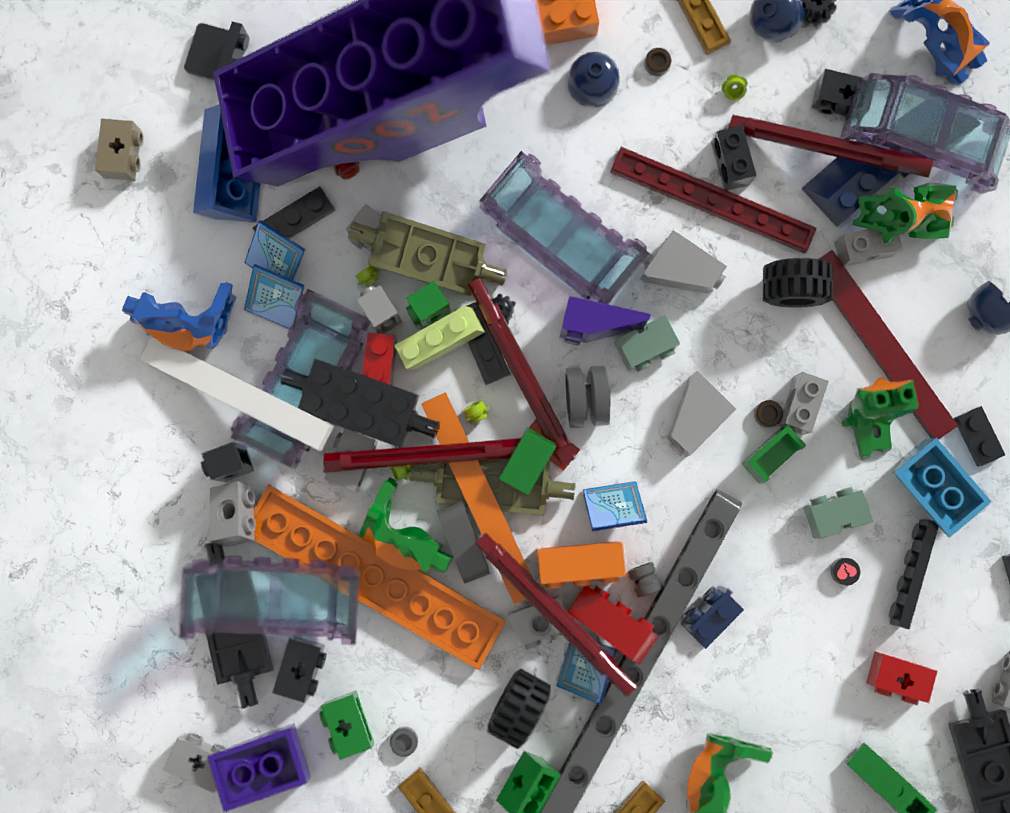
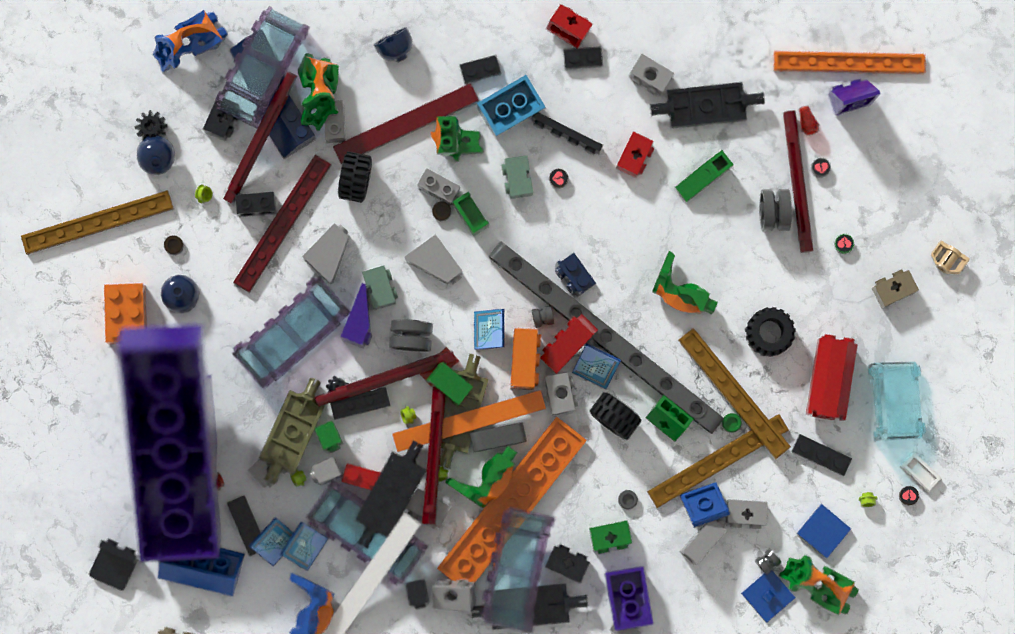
camera: 90 degrees left, 0 degrees up
(439, 338) = (353, 432): yellowish green brick -> none
(555, 614) = (555, 381): dark red piece -> none

